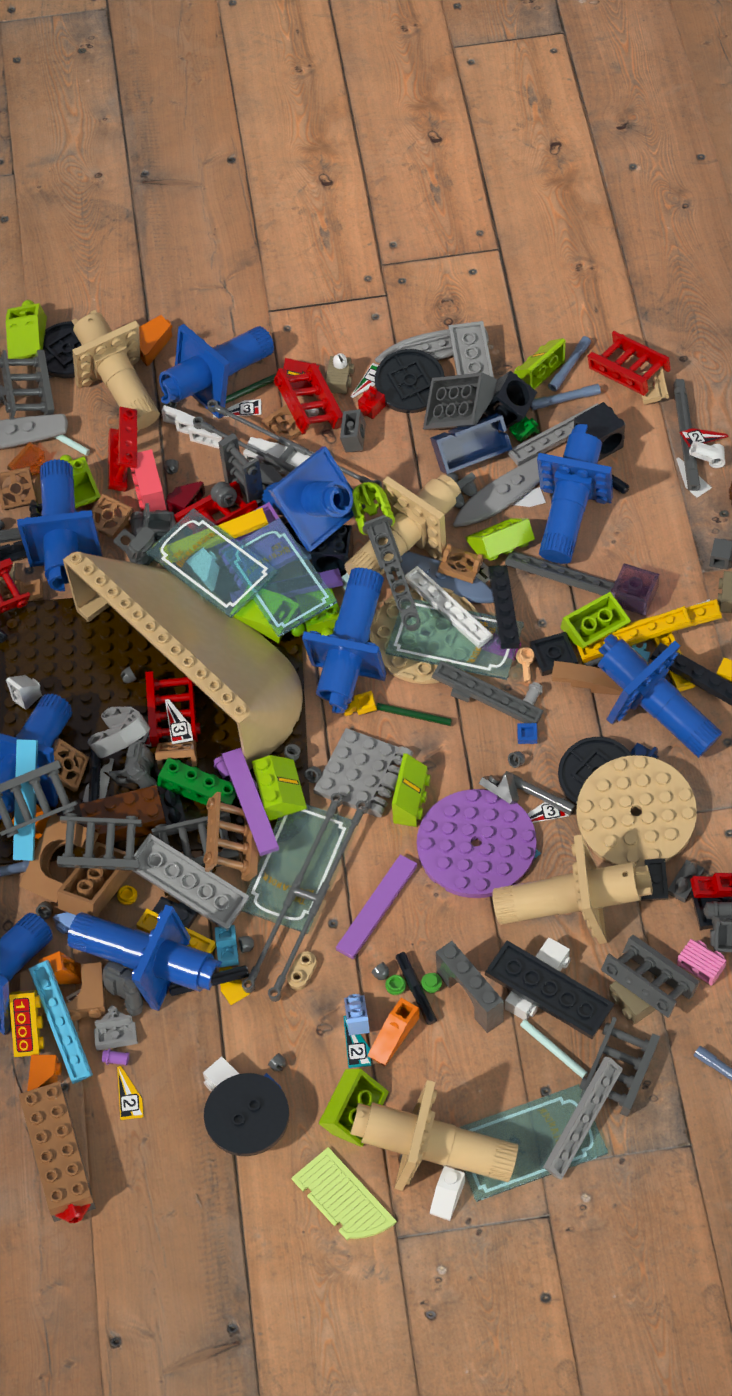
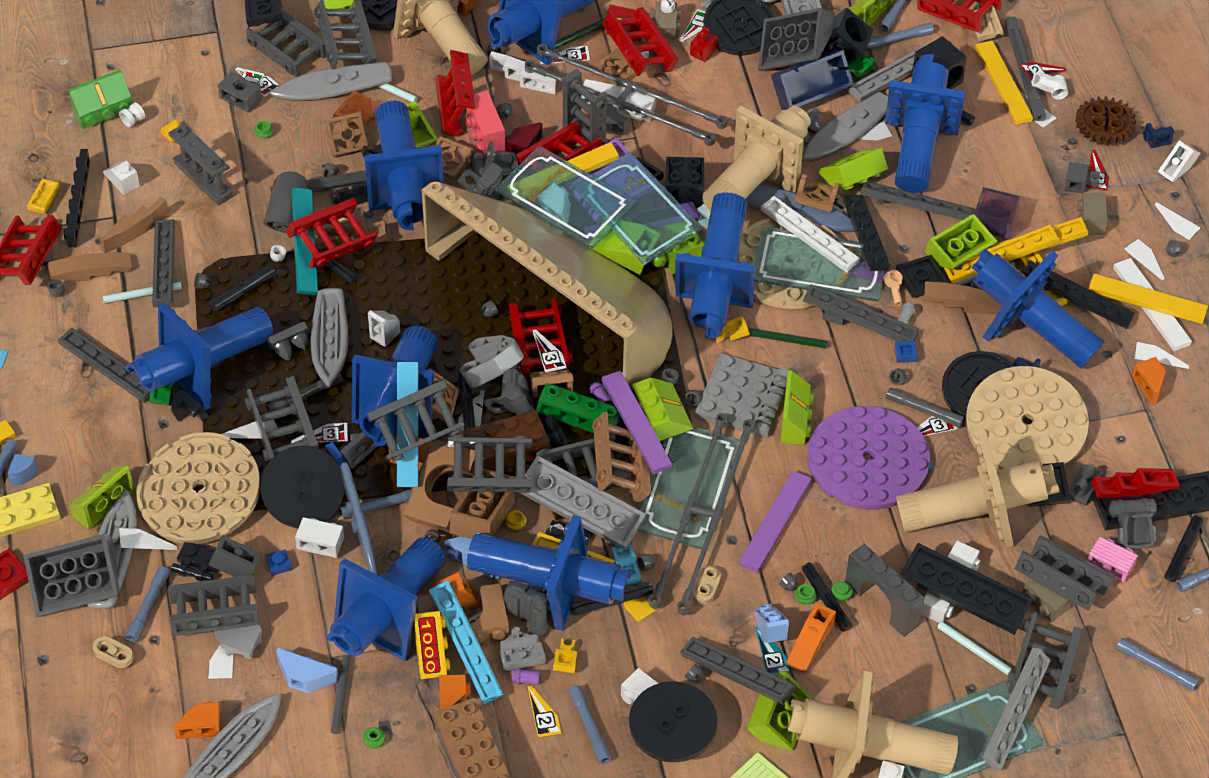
camera: 10 degrees left, 5 degrees down
(156, 1040) = (565, 658): none -> yellow plate
(175, 1131) = (597, 743): none -> sand blue piece
(223, 494) = (566, 133): dark grey piece -> none
(313, 498) = (666, 129): blue piece -> none
(317, 1064) = (738, 670): none -> dark grey tile
(353, 430) = (688, 71): dark grey brick -> none
(380, 528) = (737, 156): dark grey piece -> none
(504, 789) = (892, 404): slope -> none
(663, 449) = (1004, 82): none -> yellow tile

